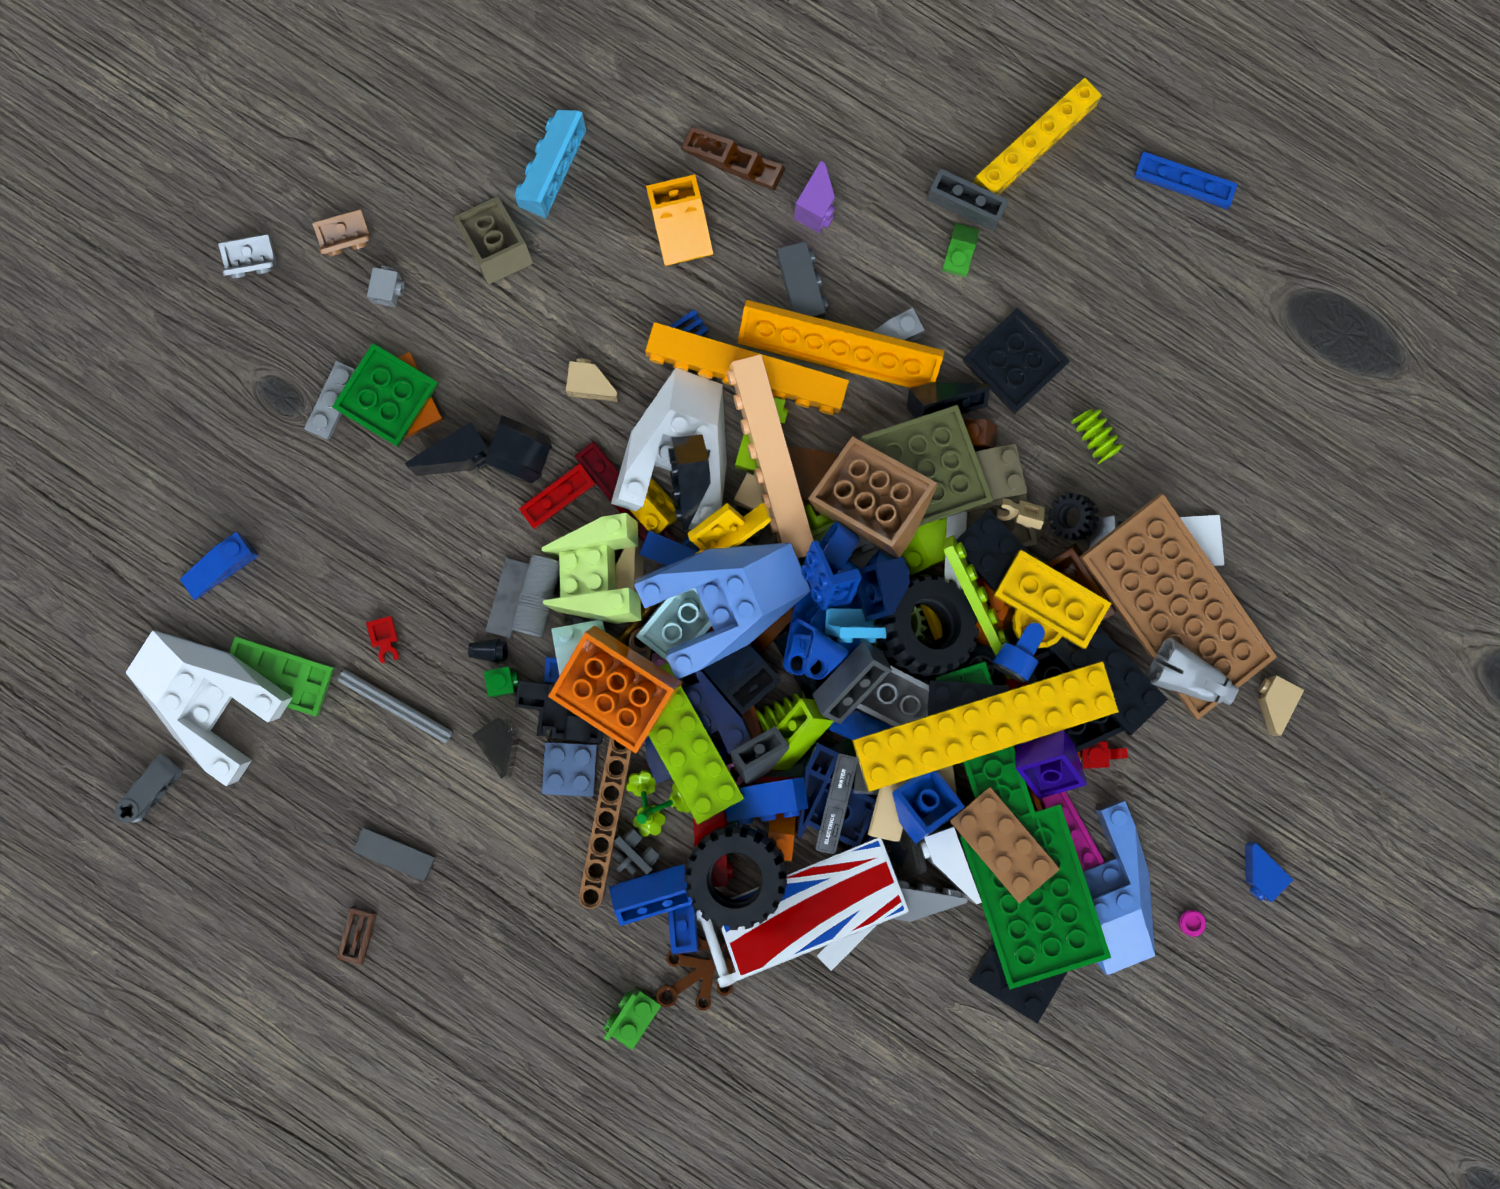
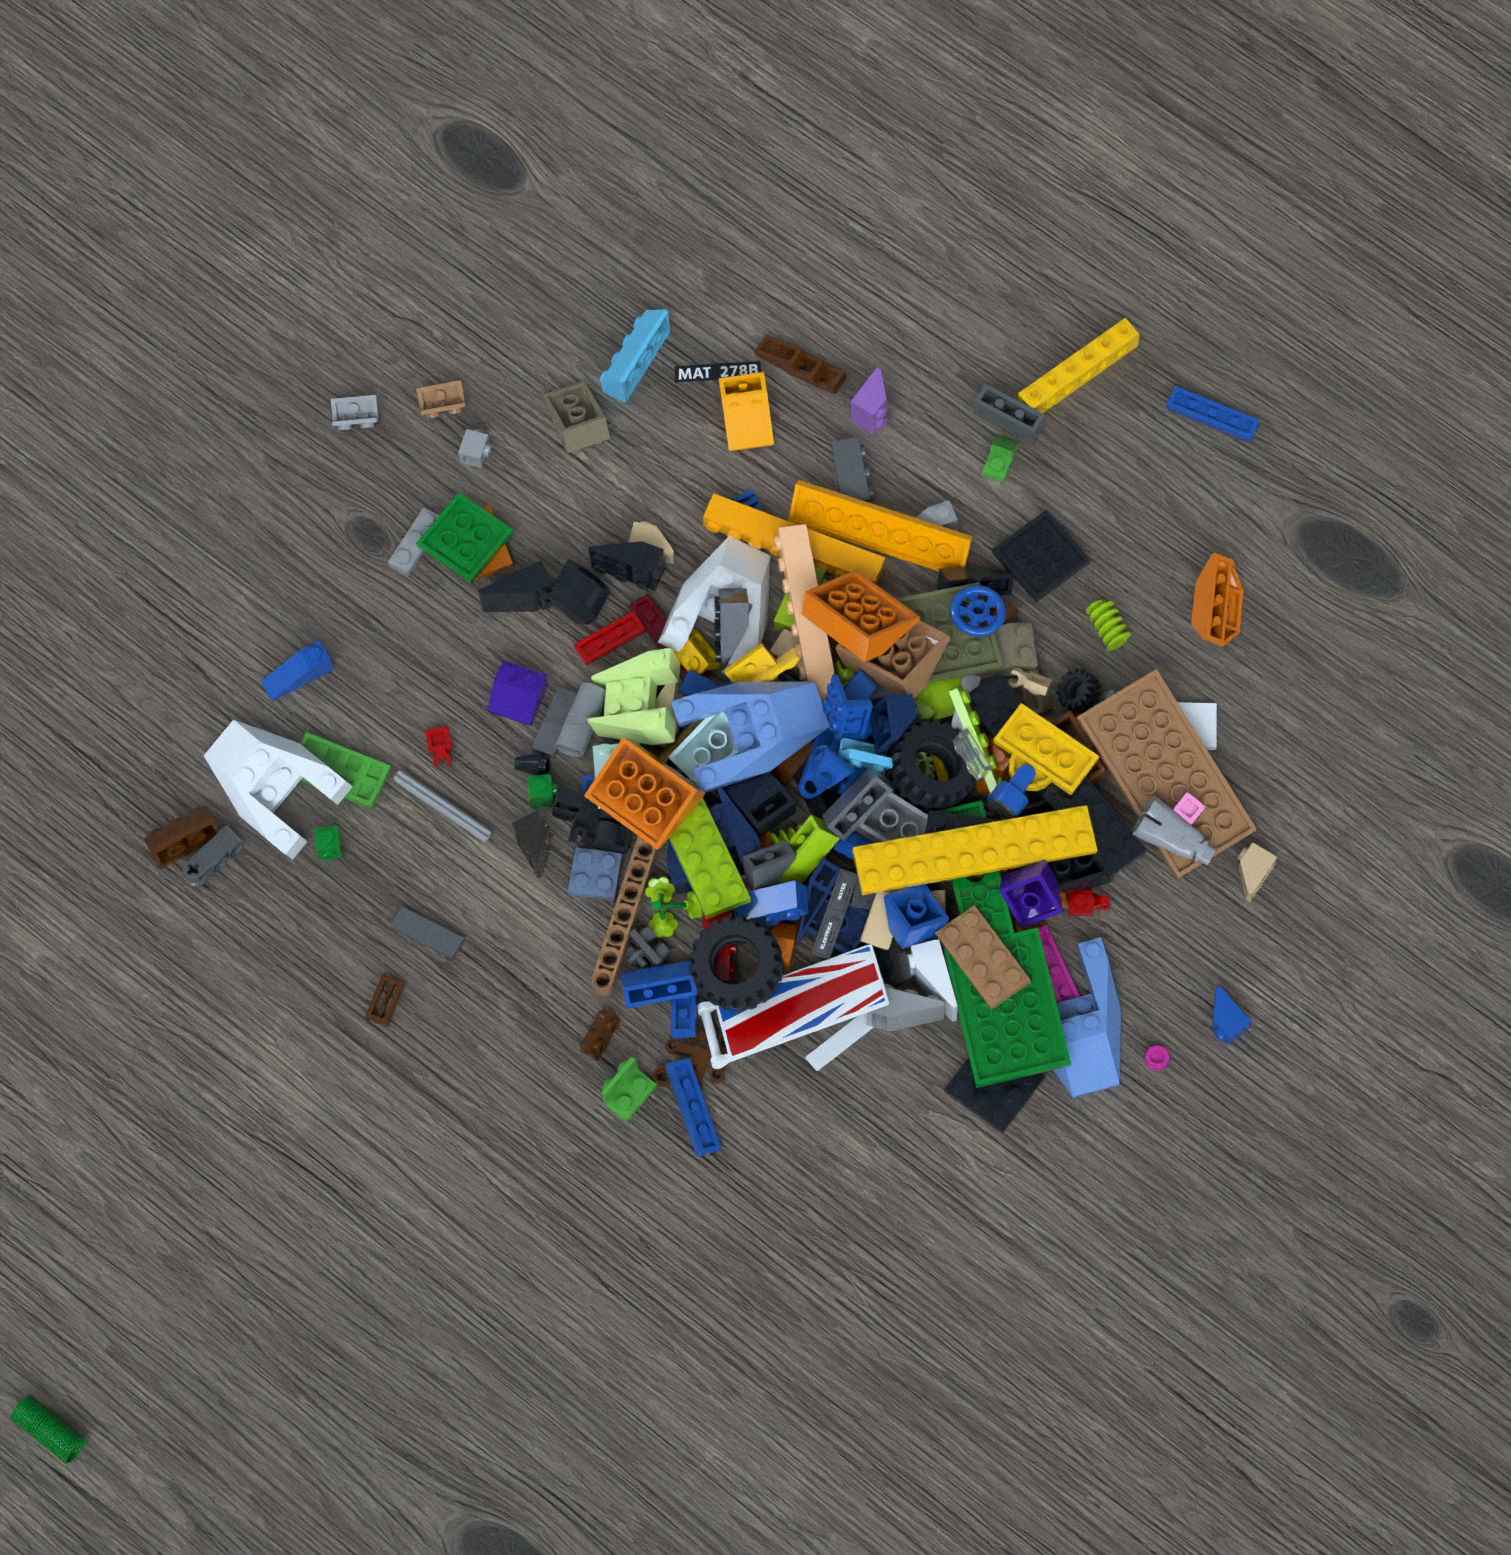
camera: 15 degrees right, 15 degrees down
(110, 771) = (181, 836): none -> reddish brown slope
(274, 764) = (328, 843): none -> green brick
(462, 570) = (517, 693): none -> dark purple slope
(572, 408) = (630, 562): none -> black slope
(590, 965) = (605, 1025): none -> reddish brown hinge
(643, 173) = (715, 371): none -> black sticker
(703, 1031) = (693, 1107): none -> blue plate
(832, 461) = (858, 614): none -> orange slope
(972, 614) = (972, 754): none -> clear plate
(976, 427) = (994, 601): none -> blue plate
(1207, 646) = (1188, 808): none -> bright pink plate
(1211, 400) = (1218, 601): none -> orange wedge

